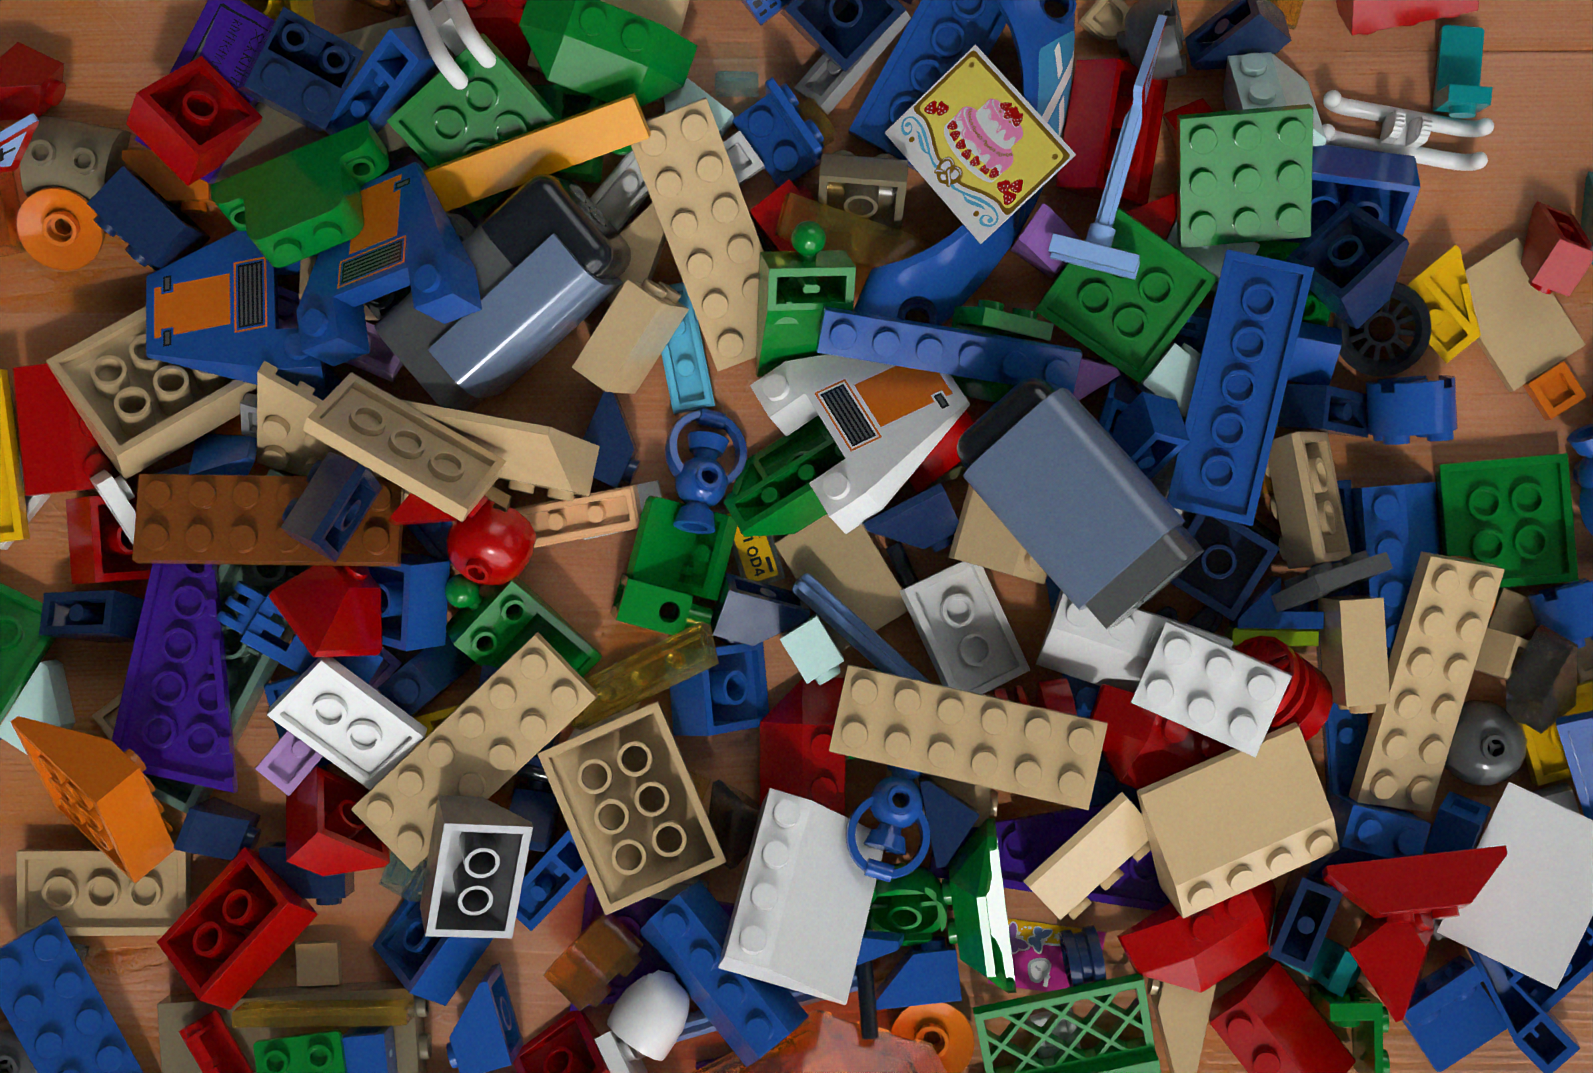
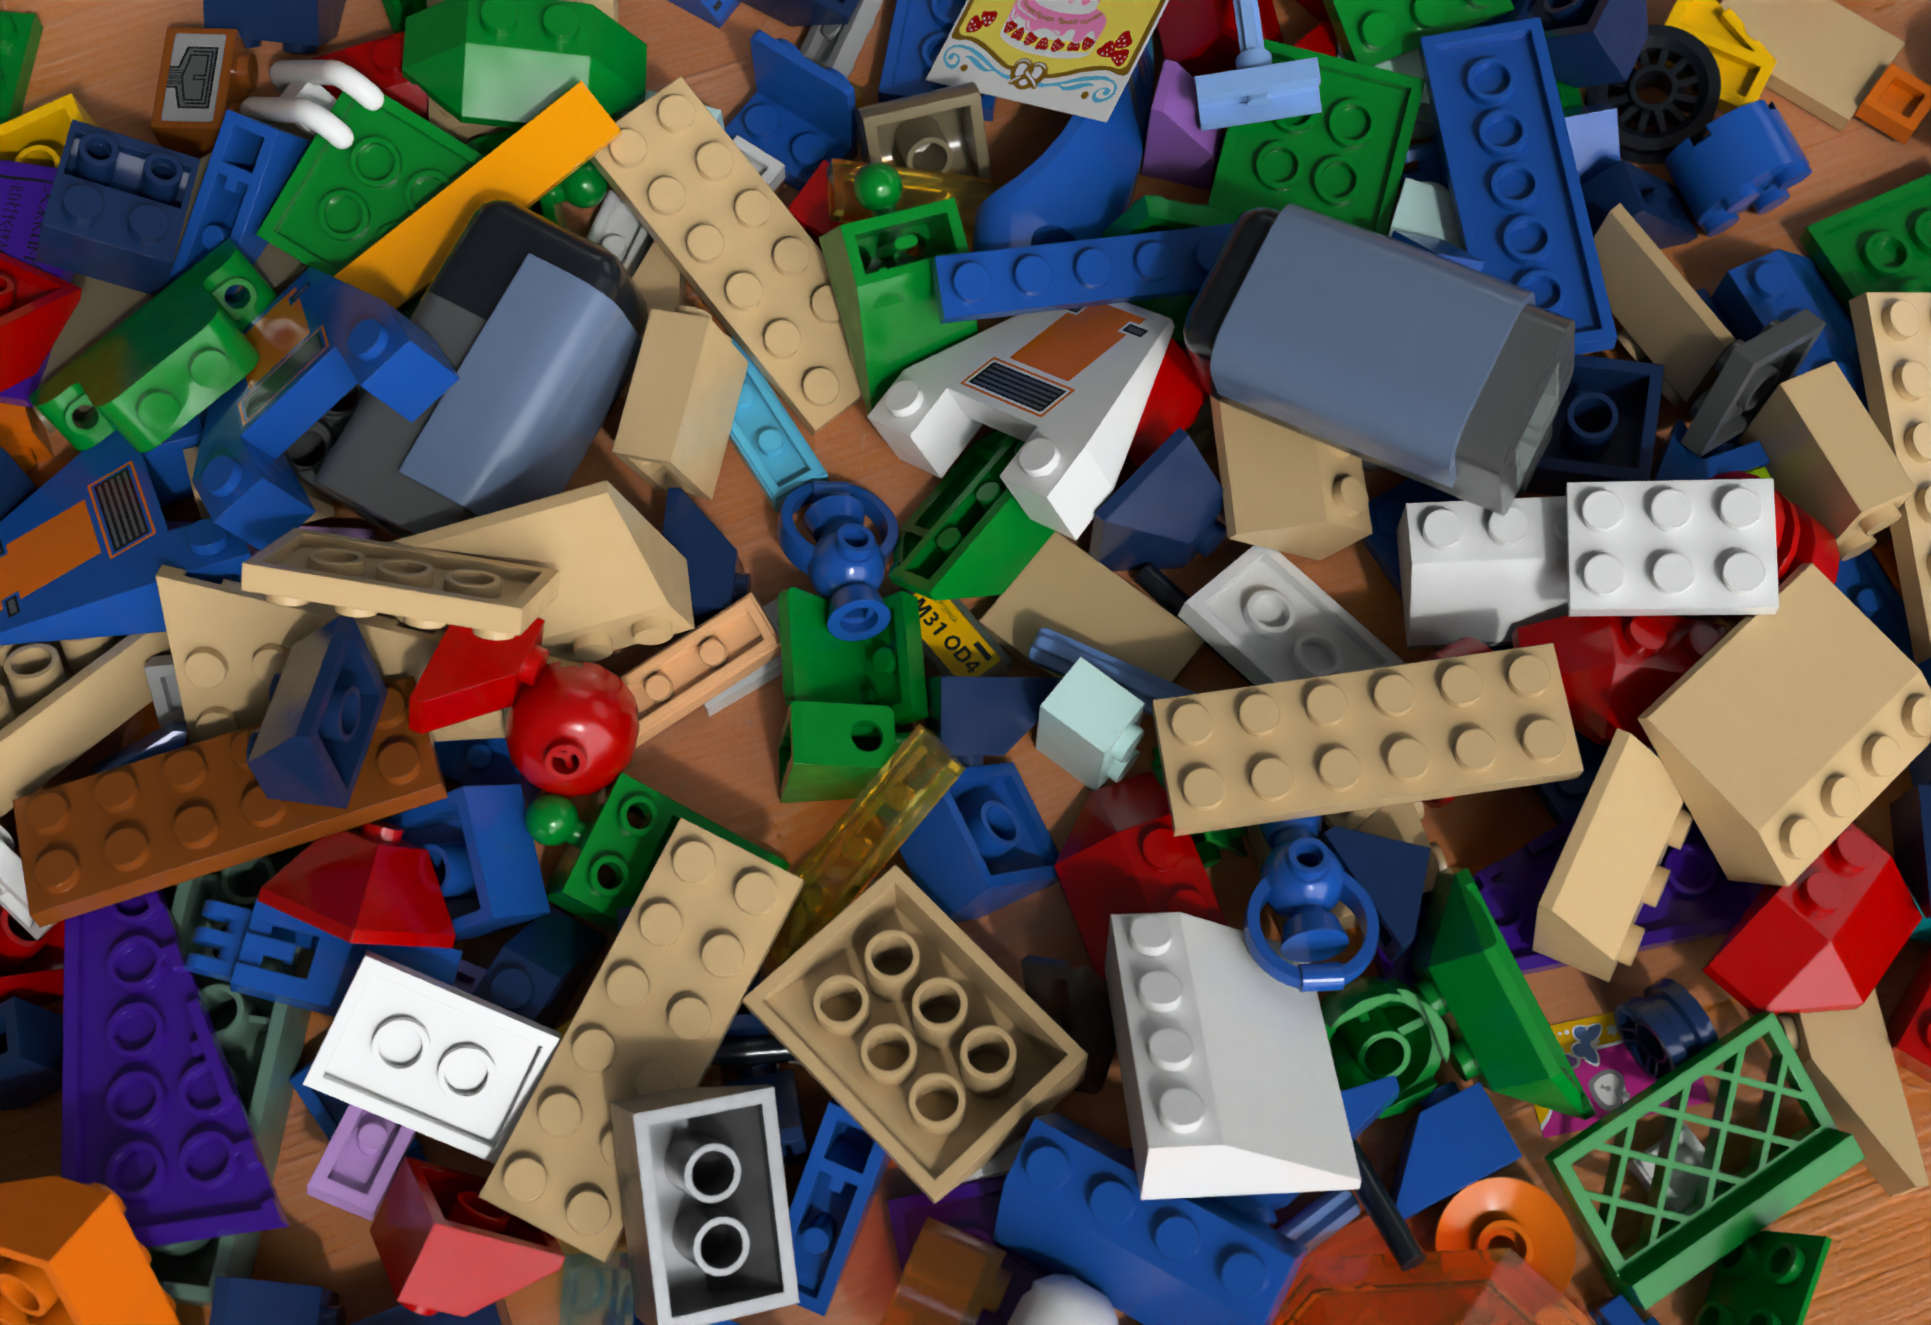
camera: 20 degrees left, 20 degrees down
(736, 84) = (718, 84): clear light blue tile -> none

